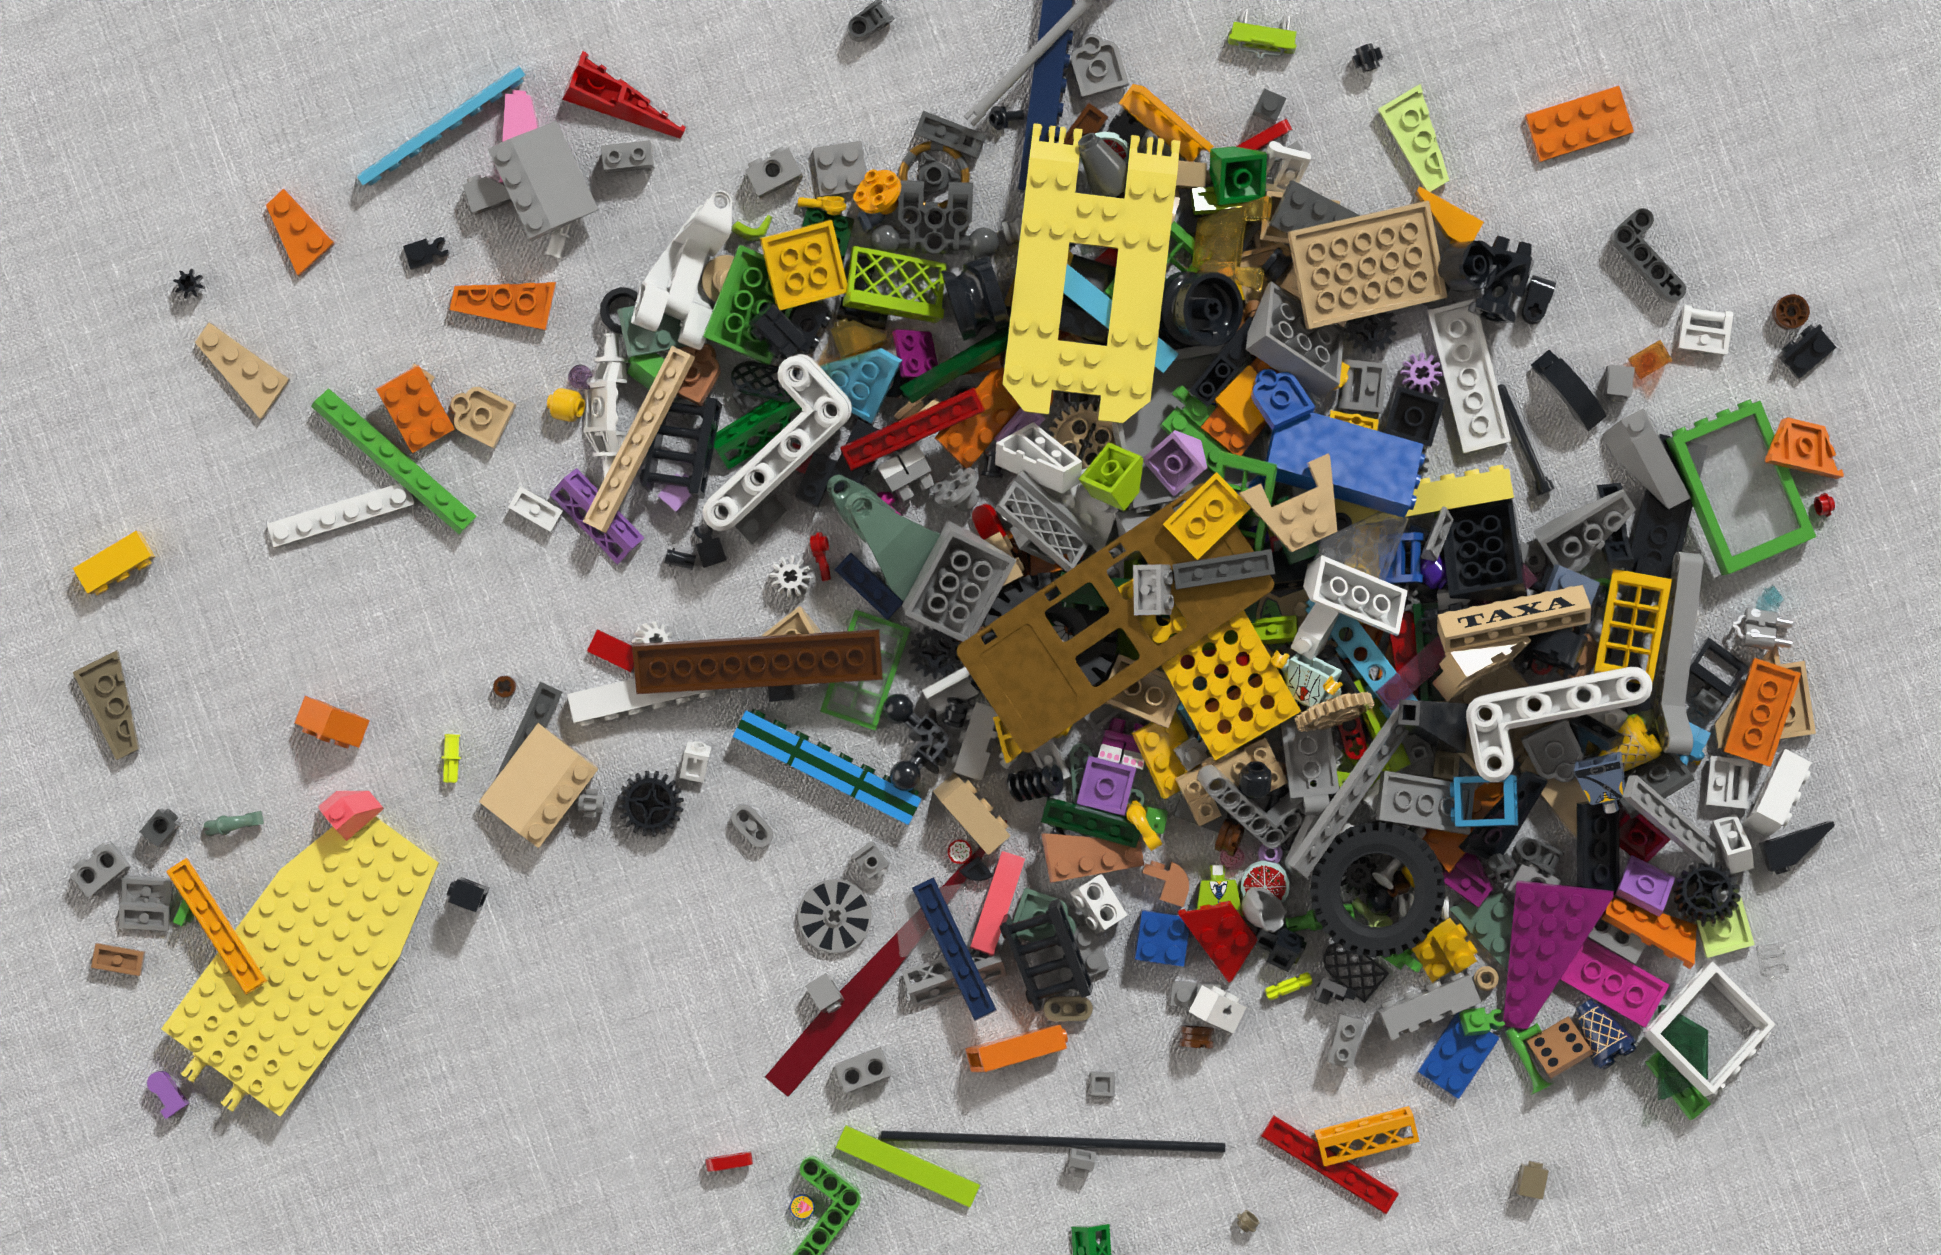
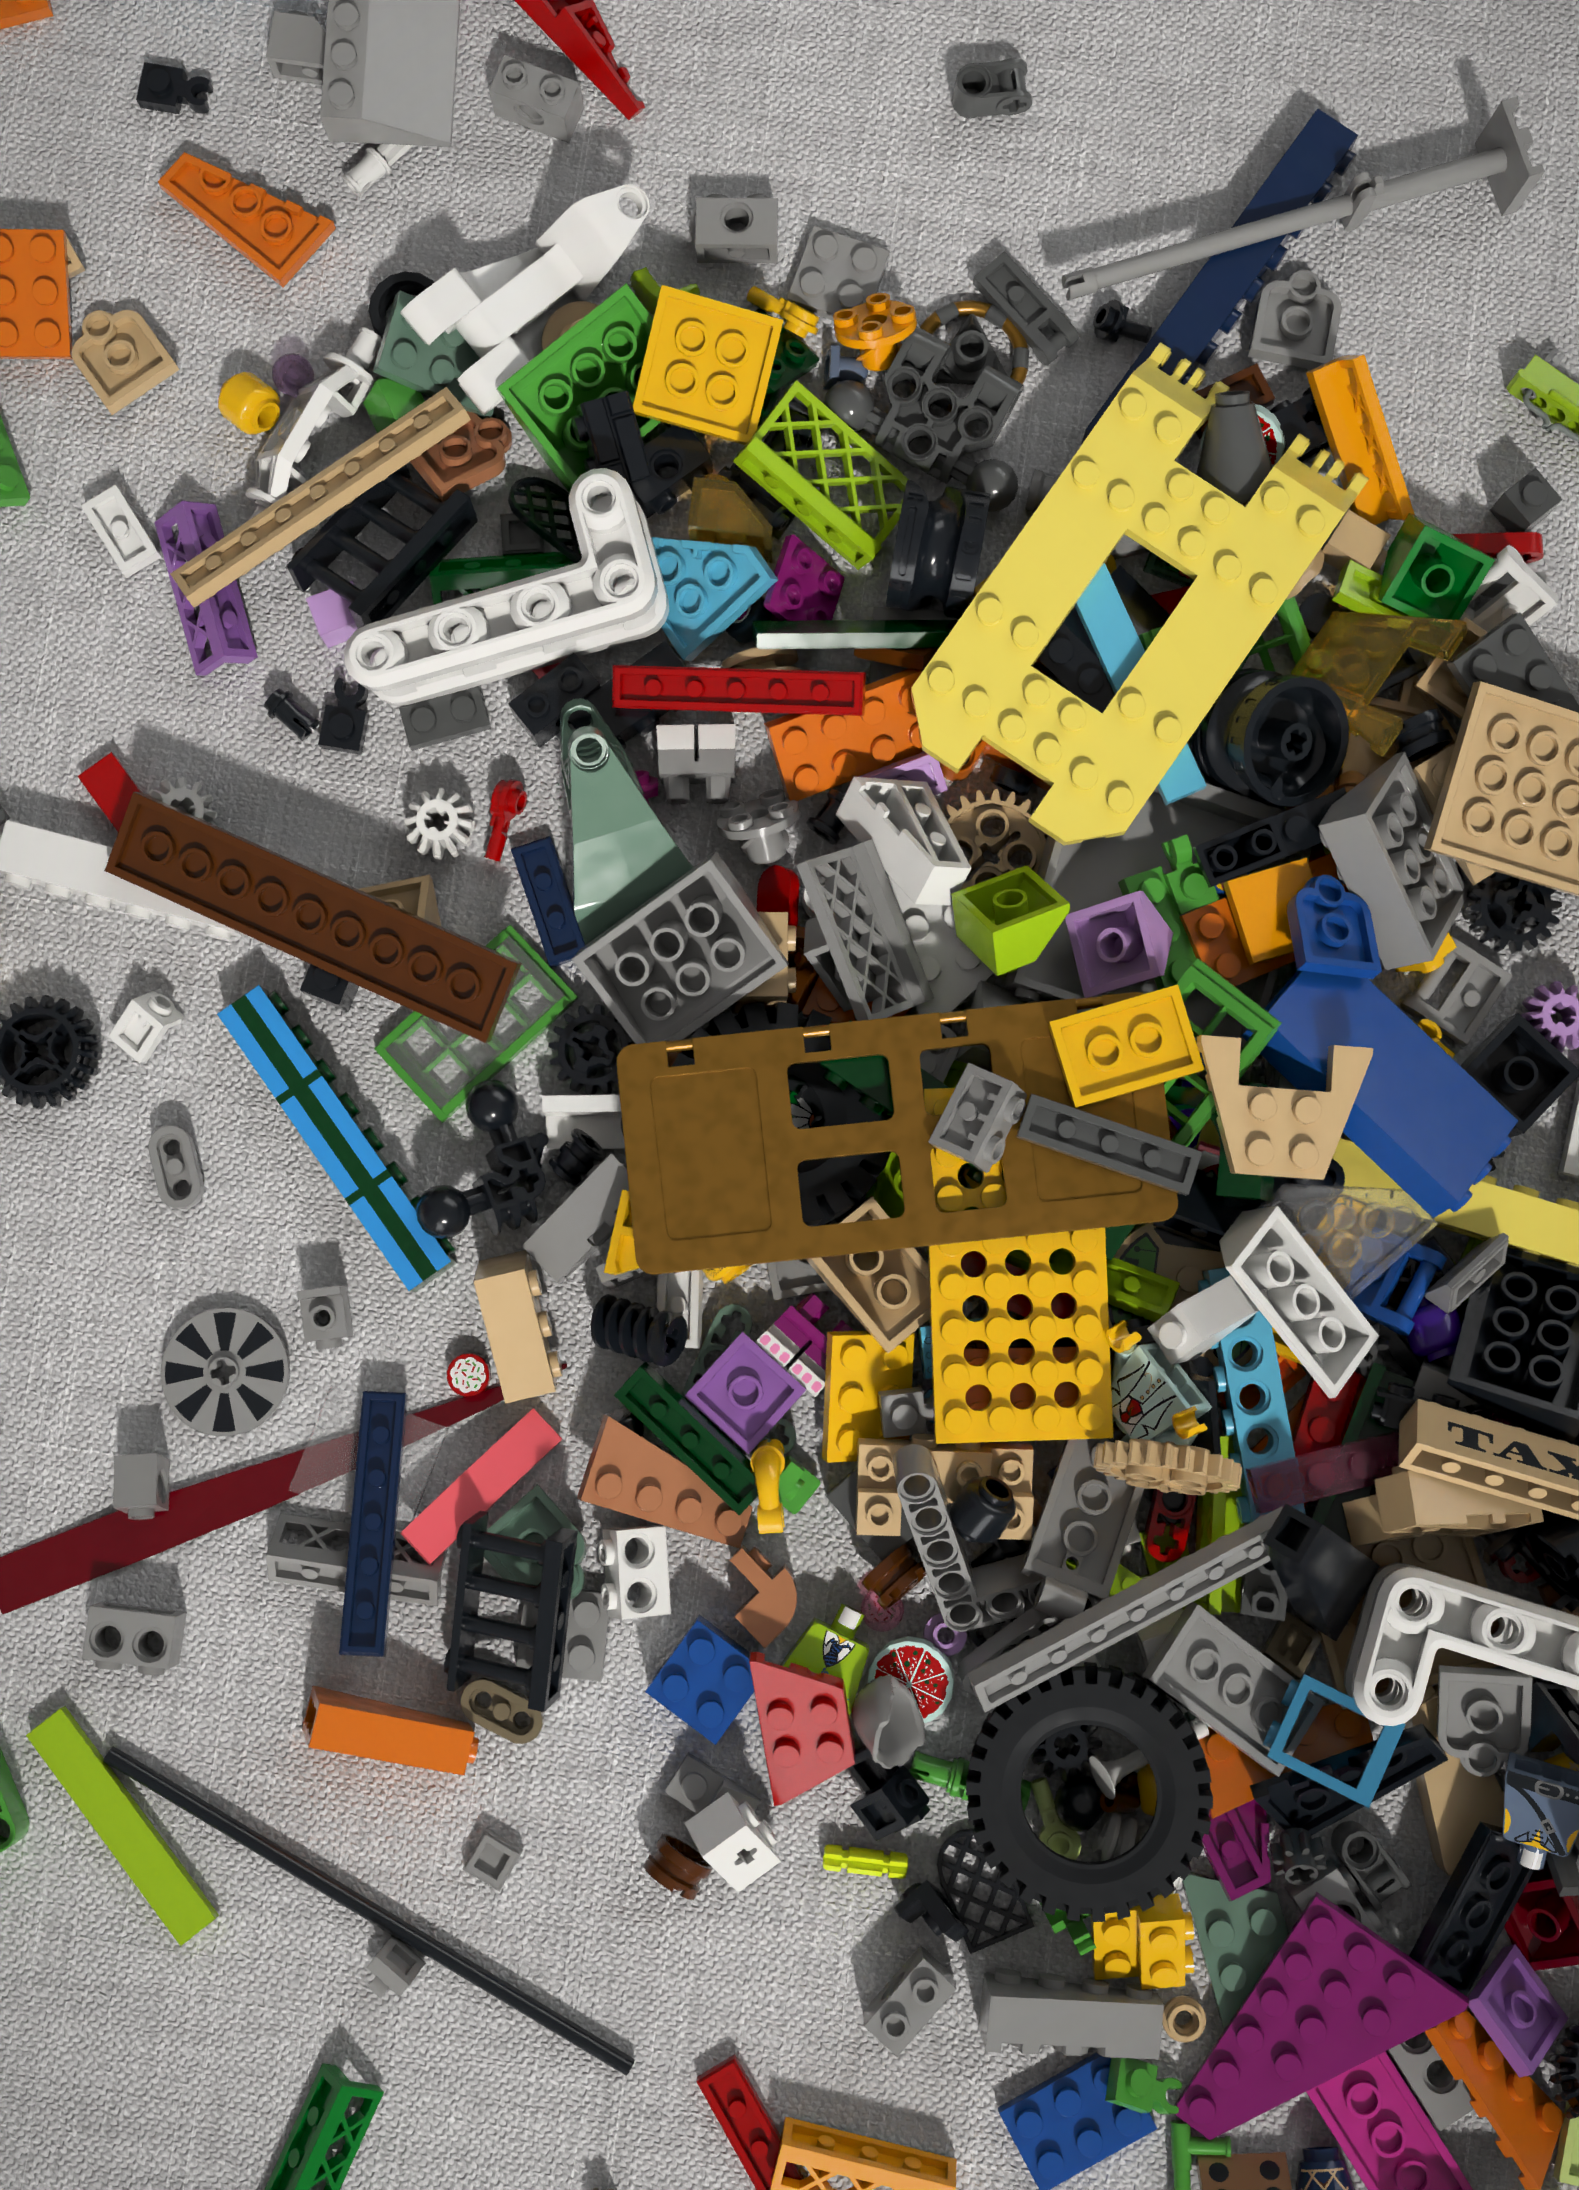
camera: 30 degrees right, 5 degrees down
(976, 870) = (477, 1418): black tile -> none

